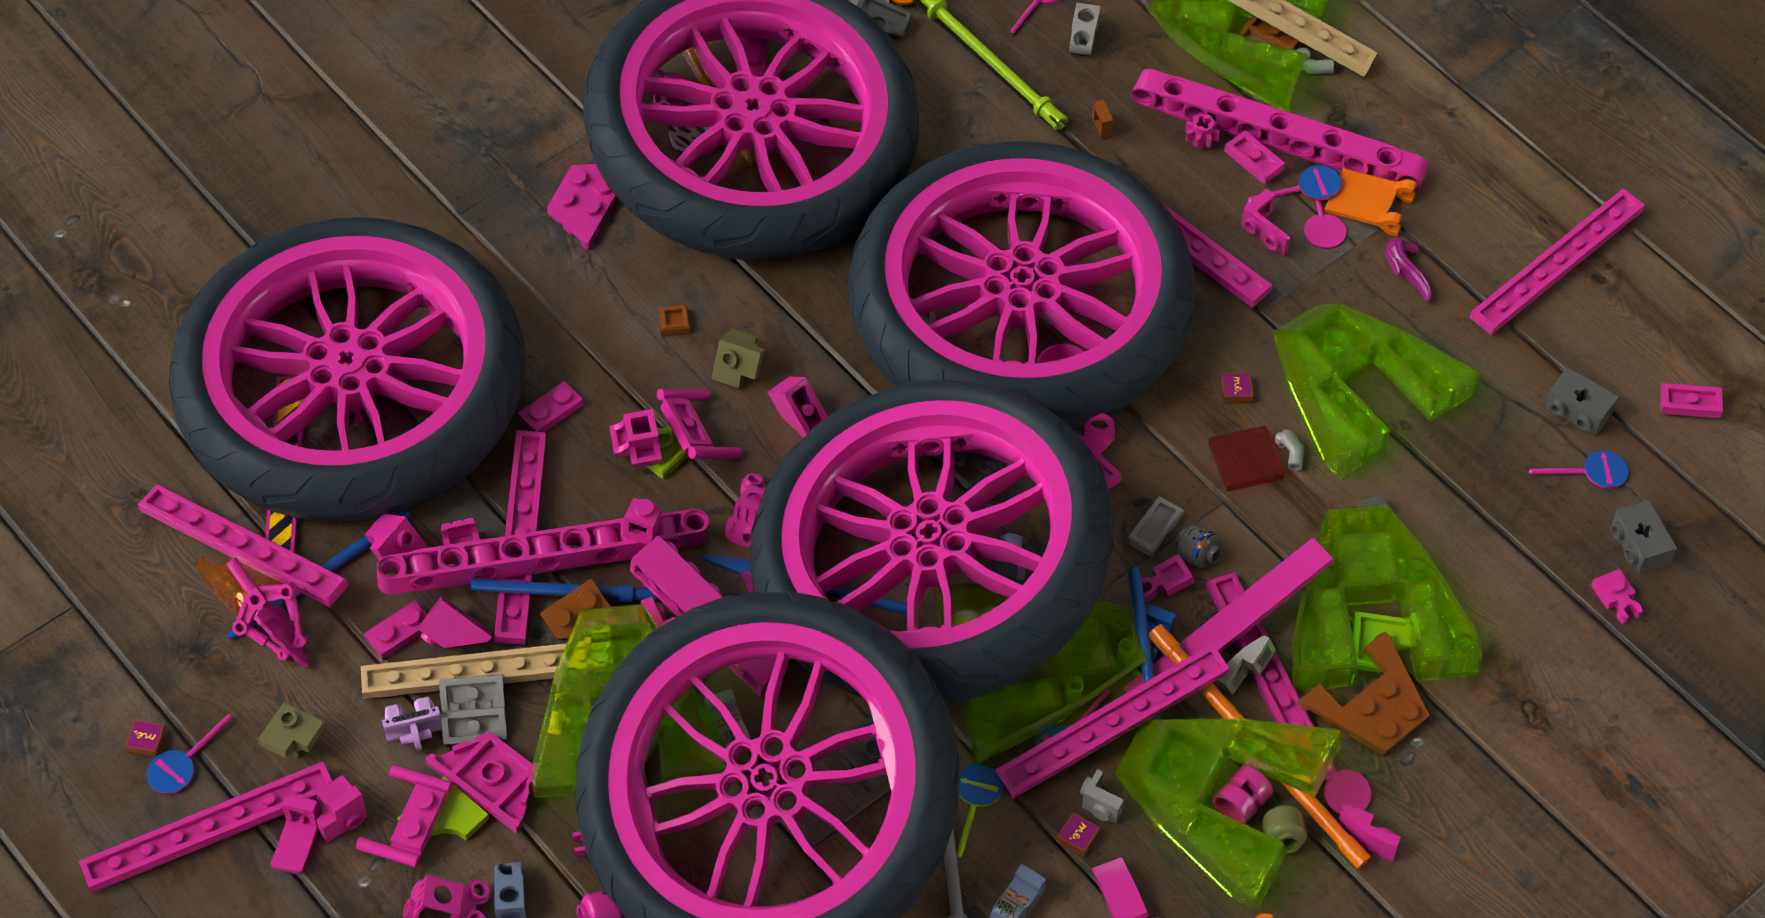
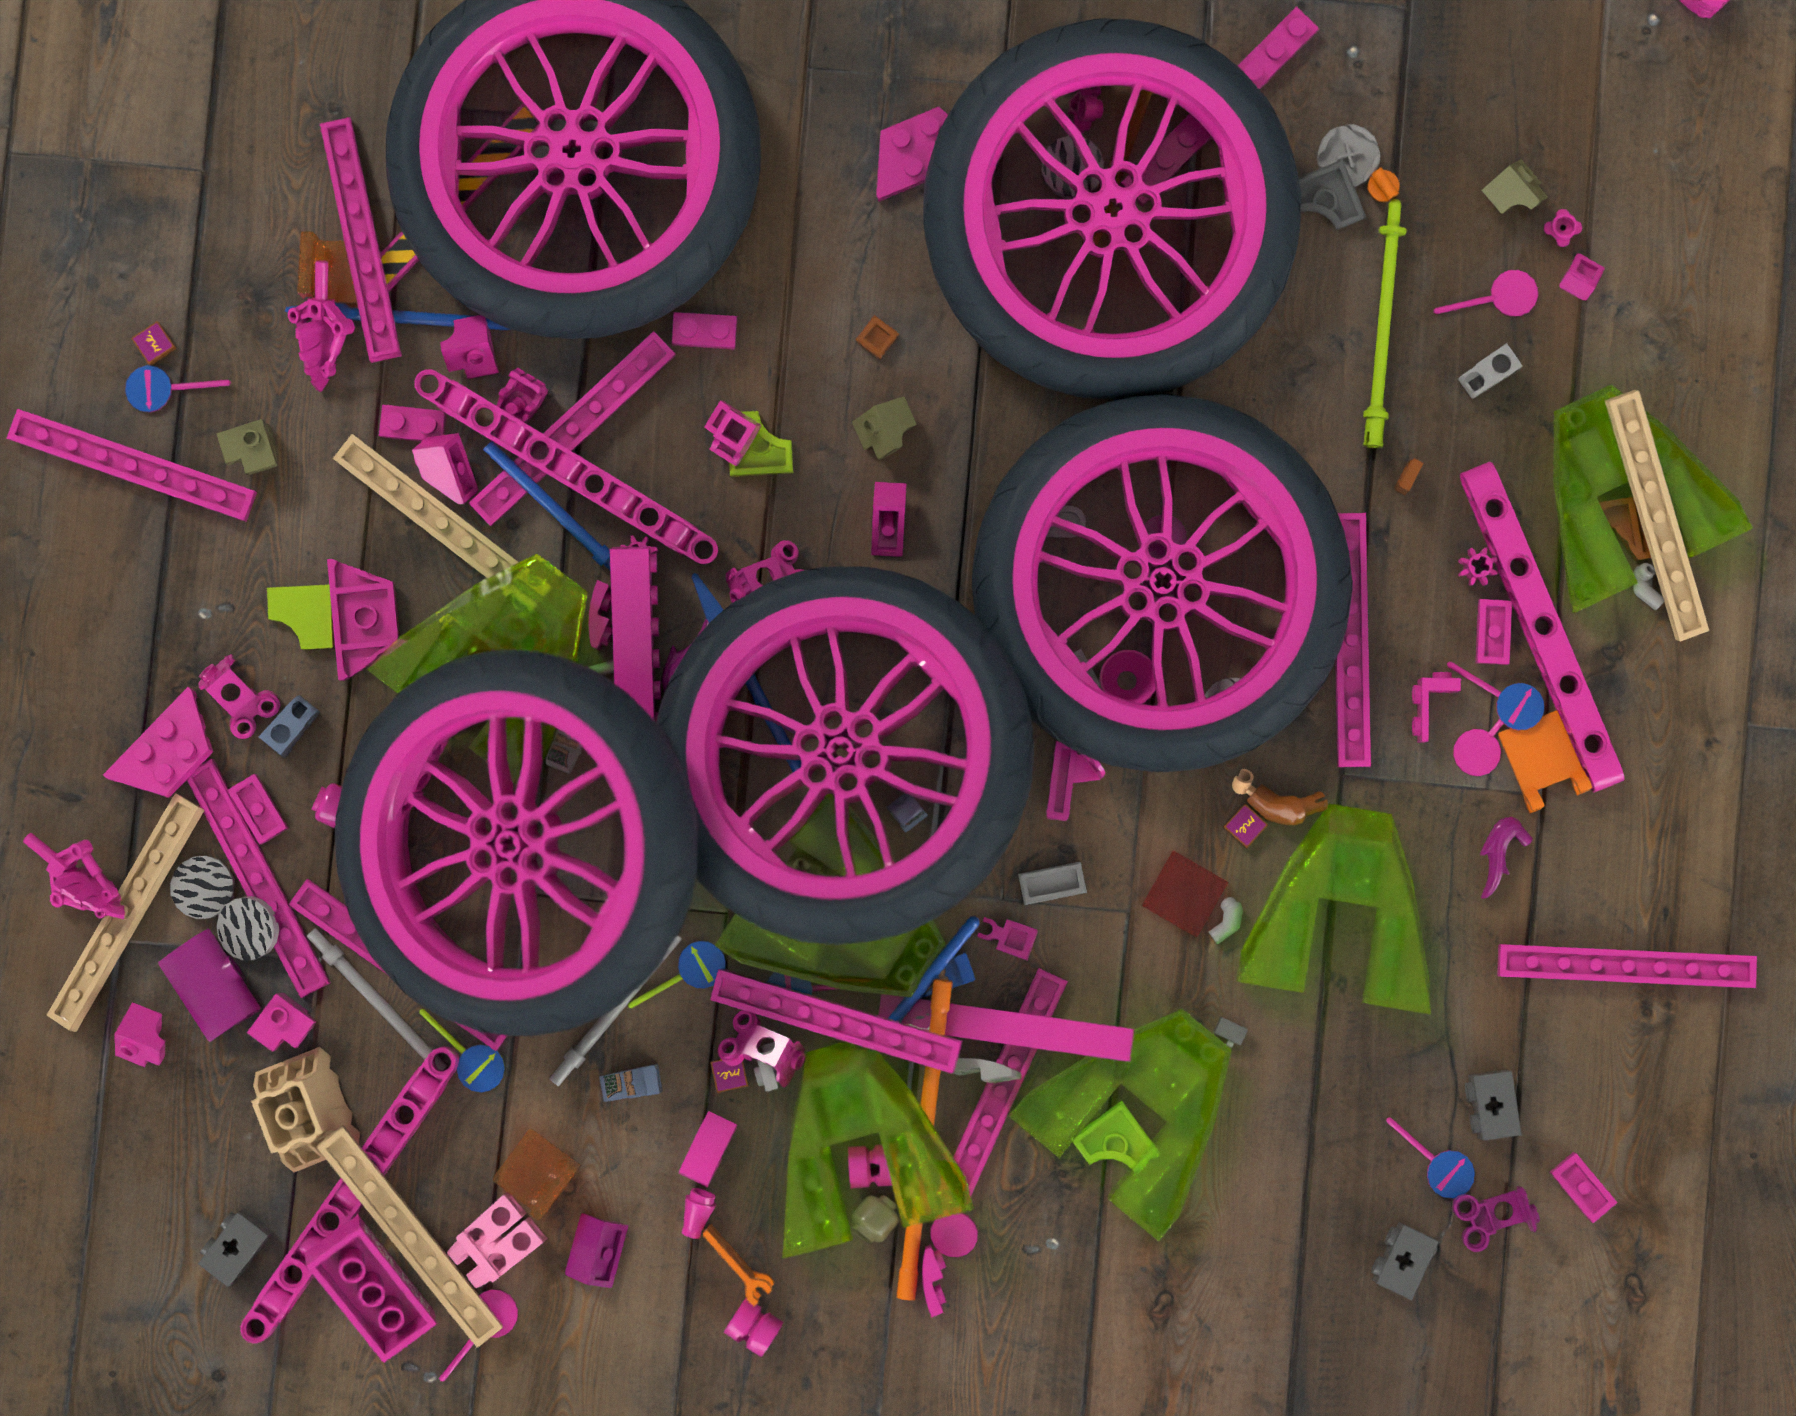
camera: 50 degrees right, 30 degrees up
(297, 833) = (183, 535): dark pink bracket -> none
(341, 808) = (233, 541): dark pink brick -> none
(412, 726) = (335, 508): lavender hips -> none
(416, 820) = (278, 603): dark pink plate -> none
(472, 707) = (401, 548): light grey slope -> none
(564, 613) = (553, 540): dark orange wing -> none
(644, 514) = (654, 520): dark pink brick -> none
(688, 427) = (782, 455): dark pink plate -> none
(1065, 793) = (785, 1057): none -> dark pink piece
(1199, 546) = (1061, 936): dark grey head -> none
(1248, 354) = (1276, 808): none -> dark orange arm
(1382, 711) = (1049, 1199): dark orange wing -> none
(1617, 592) = (1335, 1278): dark pink plate -> none
(1670, 442) = (1485, 1222): none -> magenta piece

